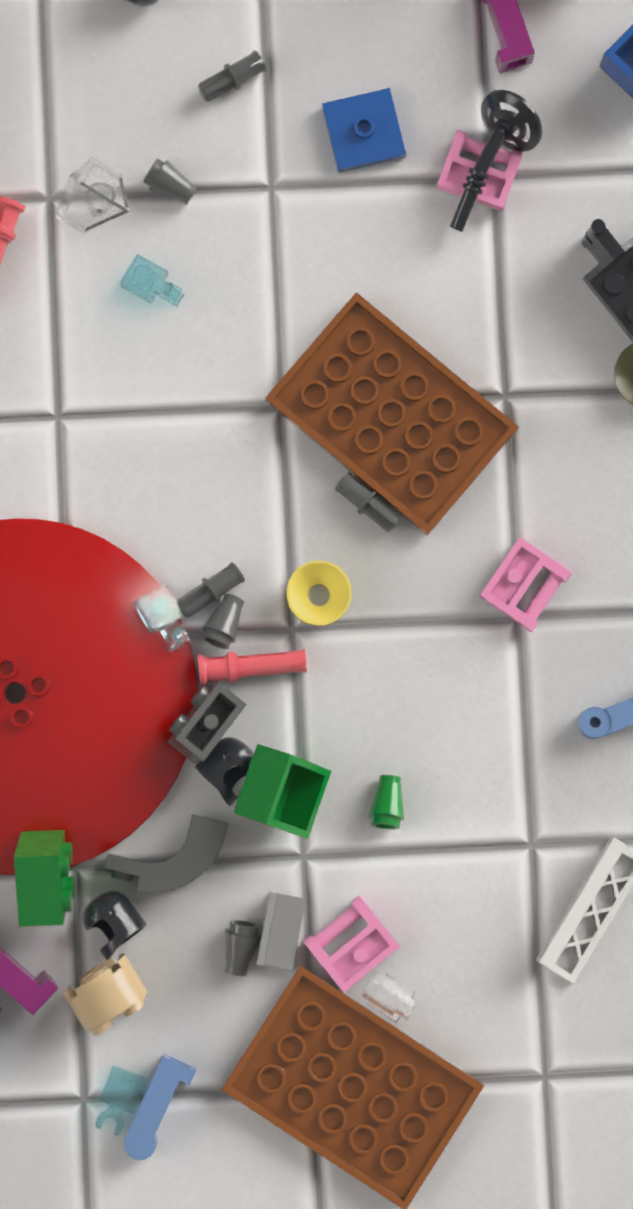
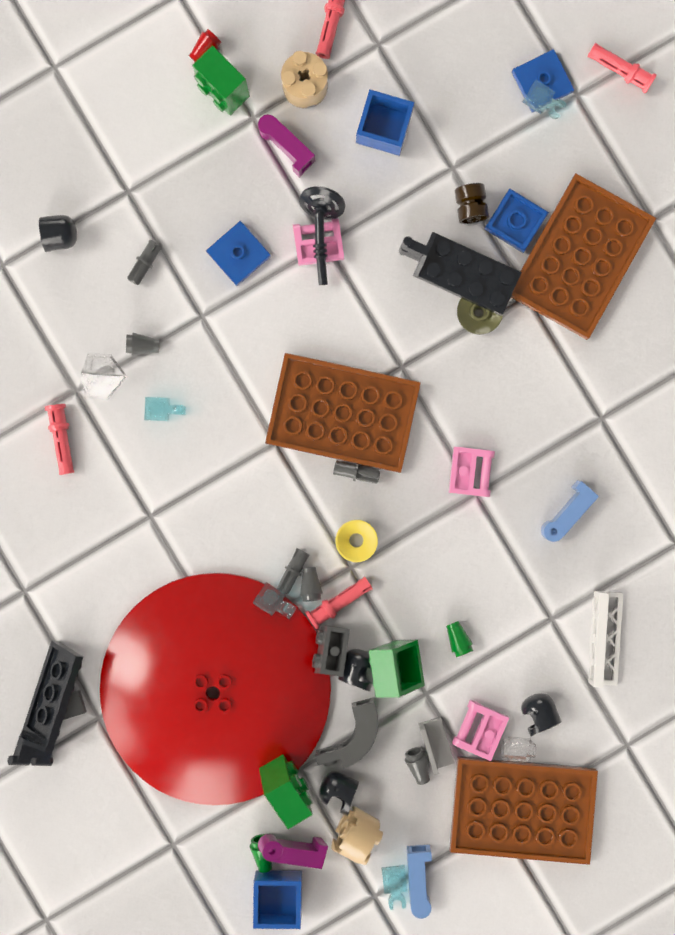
camera: 30 degrees left, 5 degrees up
(450, 961) = (543, 712): none -> black helmet

